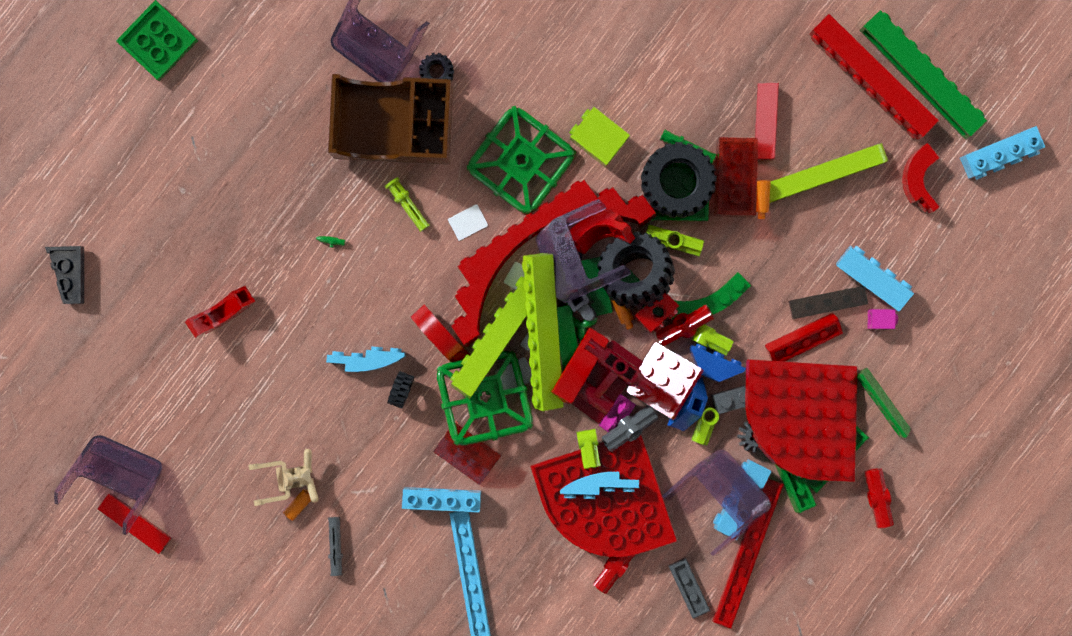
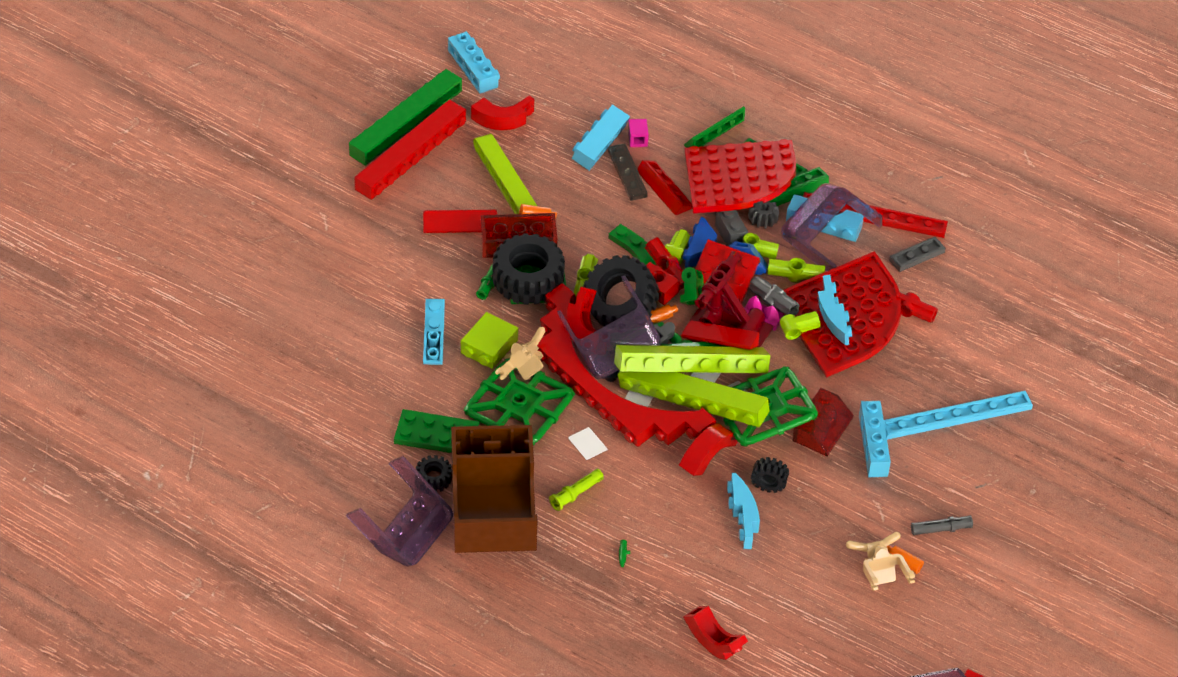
camera: 100 degrees left, 40 degrees down
(490, 78) = (427, 430): none -> green plate
(563, 164) = (524, 358): none -> tan piece
(611, 83) = (434, 332): none -> medium azure slope
(647, 347) = (693, 285): none -> green leg
(668, 470) = (795, 269): none -> lime piece
(879, 498) = (803, 127): red piece -> none

